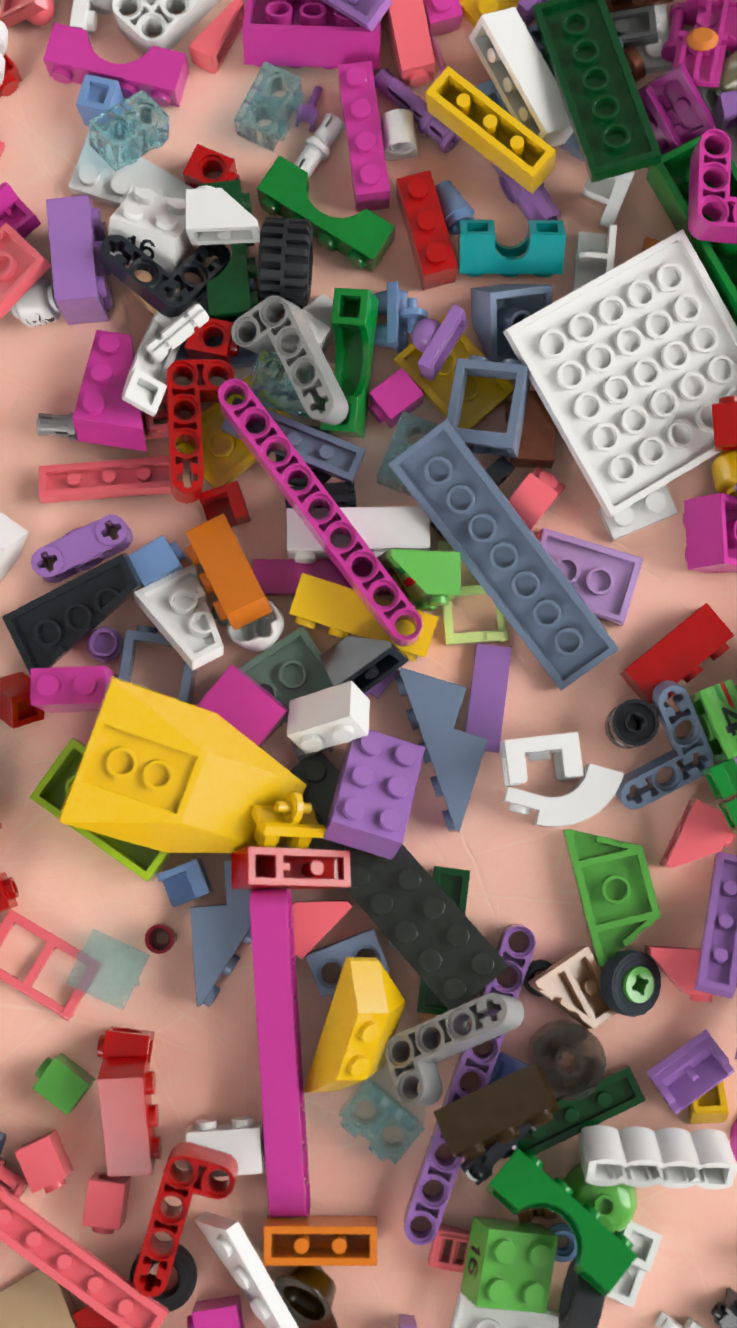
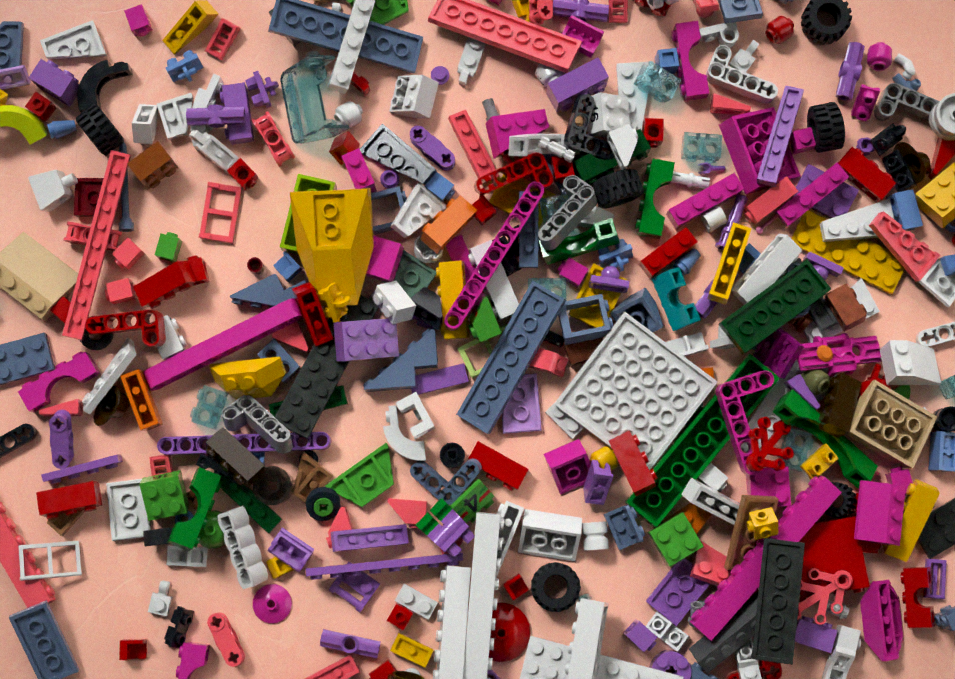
camera: 65 degrees right, 0 degrees up
(107, 969) = (230, 246): clear light blue piece -> none

